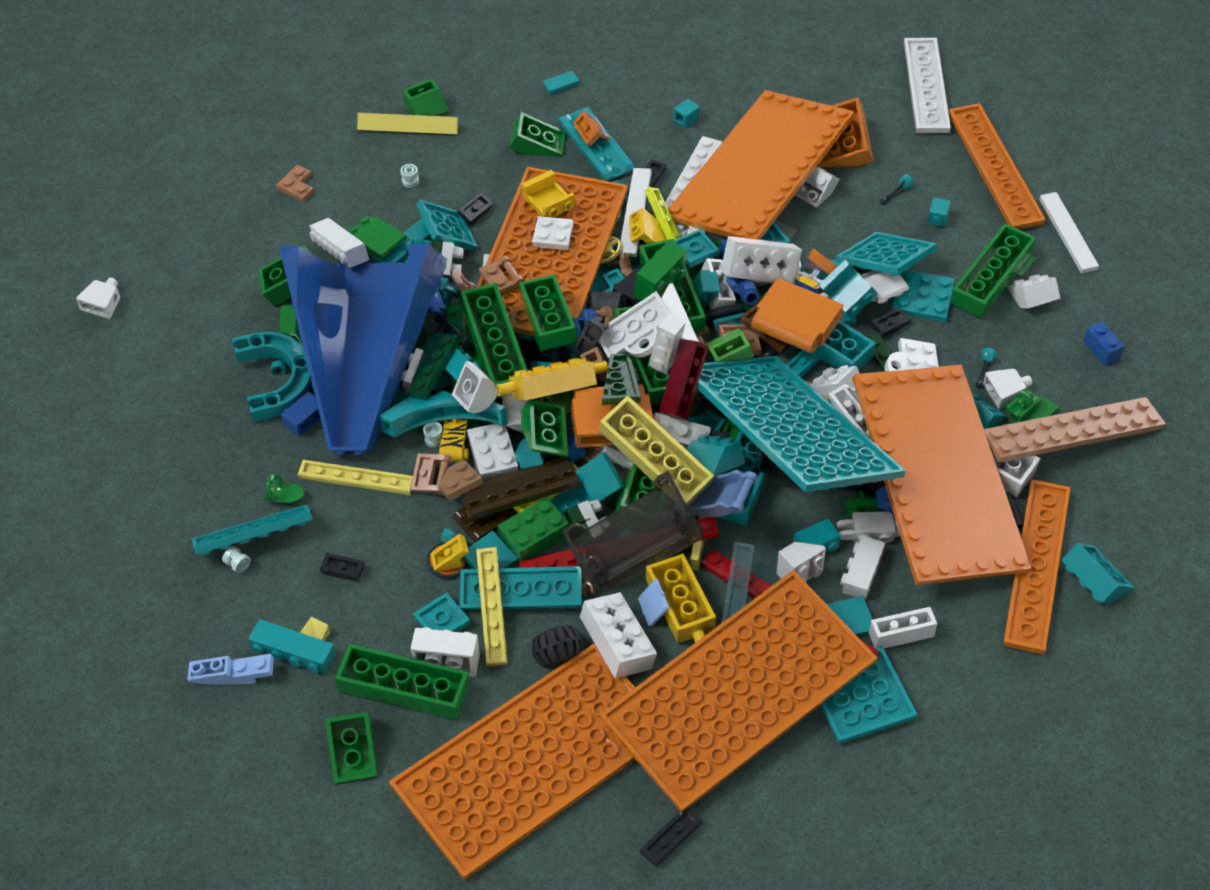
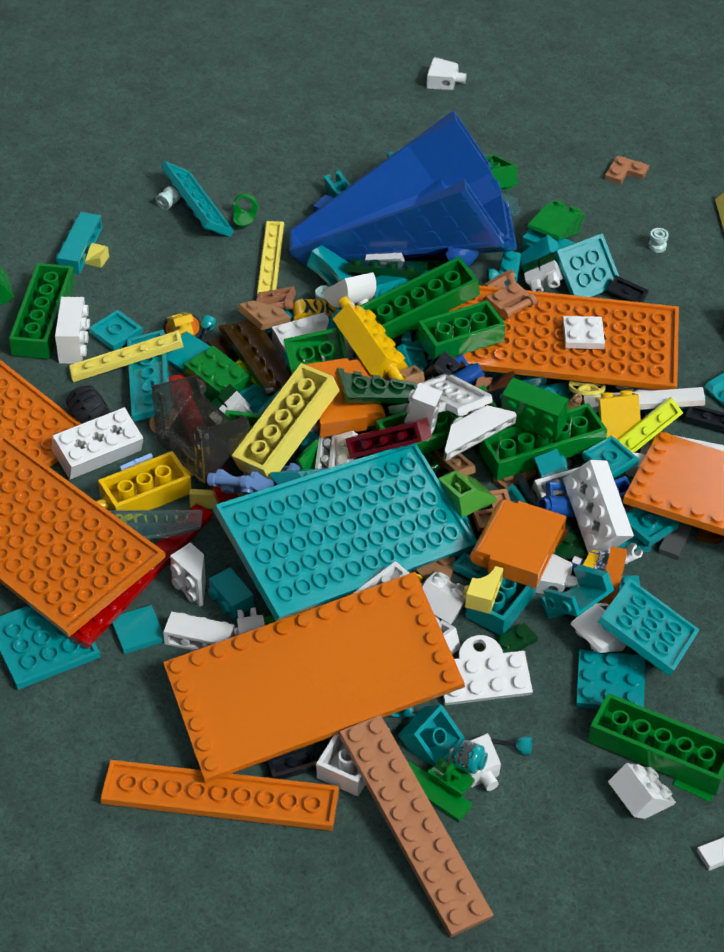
camera: 80 degrees right, 5 degrees down
(227, 671) = (54, 210): light blue slope -> none
(338, 242) = (532, 191): white brick -> none
(342, 567) = (167, 262): black plate -> none
(547, 196) = (634, 321): yellow panel -> none
(851, 345) = (483, 591): none -> light yellow arch
(890, 322) = (555, 647): black plate -> none
(903, 628) = (119, 666): white brick -> none
(1018, 380) = (469, 756): none -> teal head
(1096, 573) = (212, 854): teal slope -> none
(1103, 343) = (569, 865): blue brick -> none

